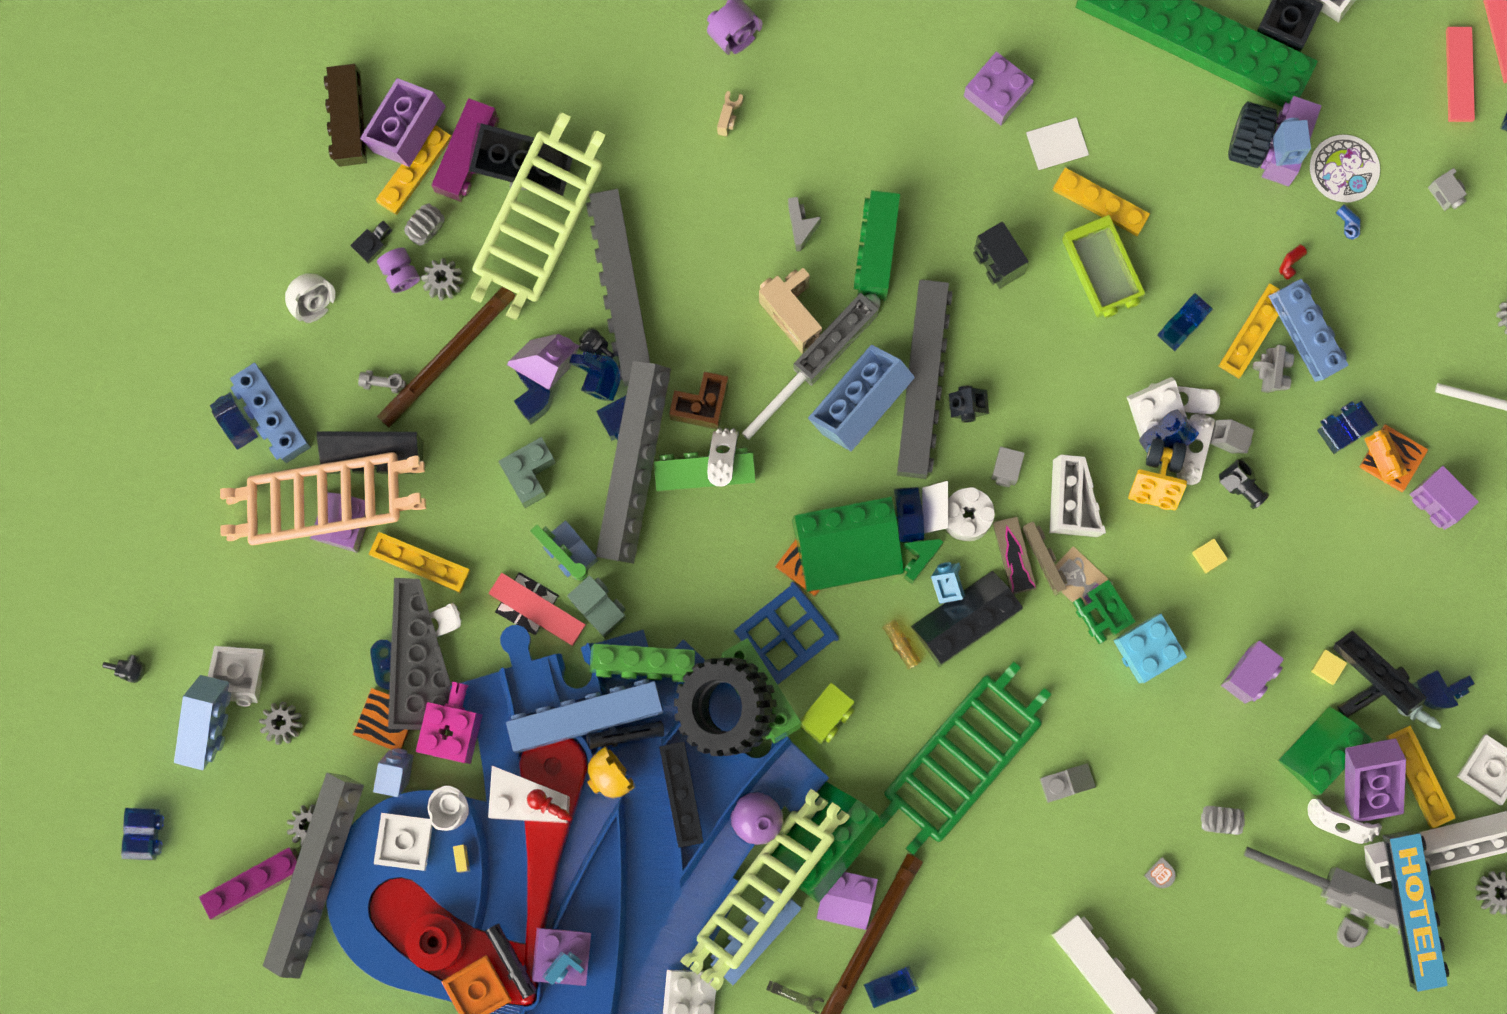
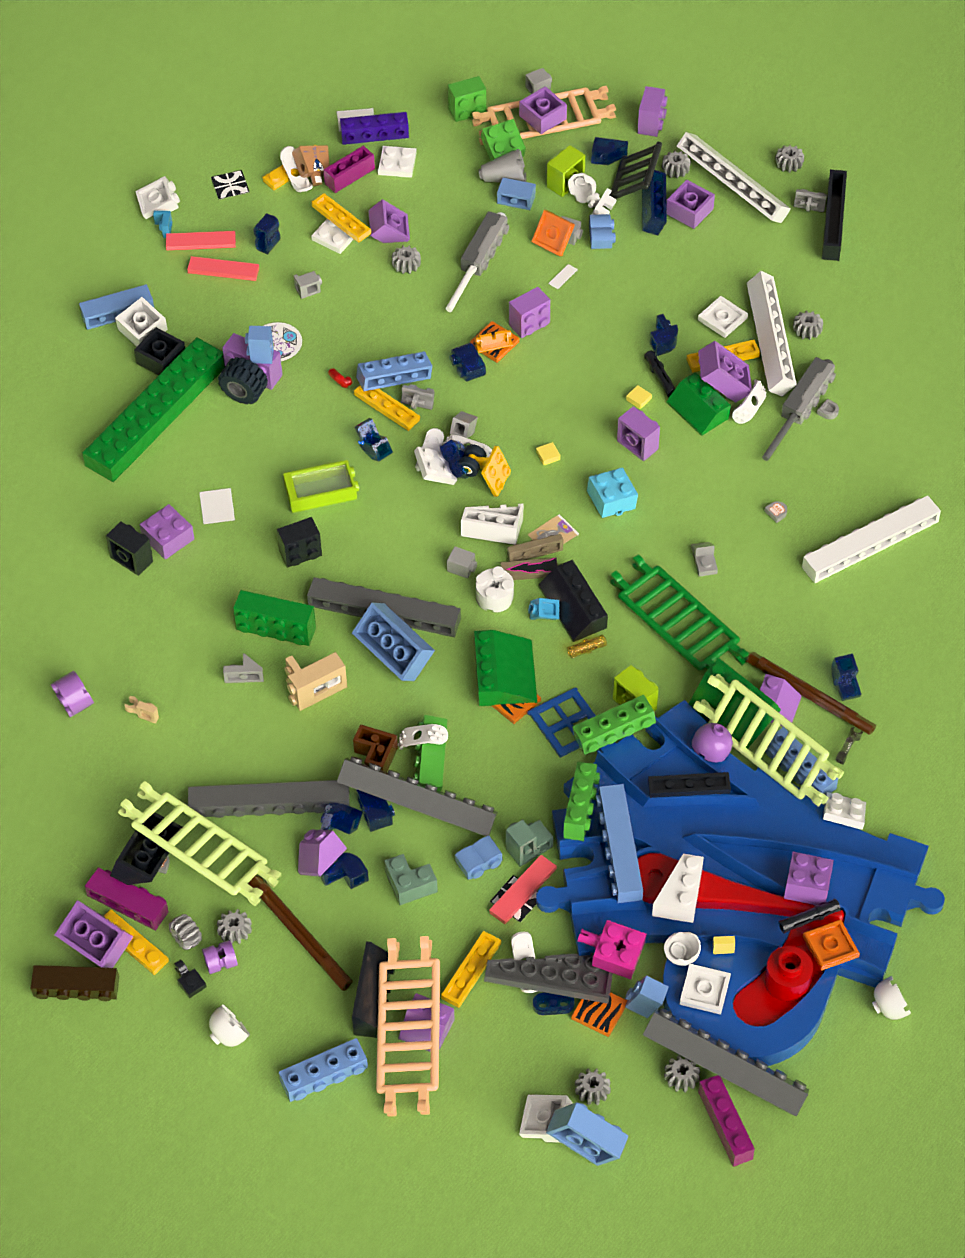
camera: 85 degrees left, 25 degrees down
(128, 670) = (530, 1205): black piece -> none
(141, 834) = (675, 1206): clear blue brick -> none
(233, 421) = (323, 1096): clear blue brick -> none
(394, 382) = (316, 973): light grey bar -> none
(538, 800) = (687, 865): red bar -> none
(558, 970) = (819, 866): dark azure bracket -> none
(561, 553) = (482, 854): bright green plate -> none
(594, 343) = (311, 821): black piece -> none
(608, 775) = (667, 833): yellow cylinder -> none
(622, 735) = (639, 836): black pin -> none
(695, 714) = (634, 711): black tyre -> none
(824, 352) = (358, 671): dark grey piece -> none
(909, 514) = (489, 621): clear blue slope -> none
(924, 552) = (524, 623): green slope -> none
(935, 507) = (486, 607): white sticker -> none
(959, 47) = (129, 548): none -> black brick
(968, 403) = (413, 573): black brick -> none
(1101, 201) = (267, 484): yellow plate -> none
(1110, 607) = (578, 514): green plate -> none
(1222, 820) = (742, 465): light grey gear -> none
(1241, 479) = (499, 424): black connector -> none
(1352, 222) = (317, 341): blue arm -> none
(1379, 673) = (648, 363): black plate -> none
(1415, 910) = (817, 360): brick -> none
(1423, 717) = (672, 358): light aqua bar -> none

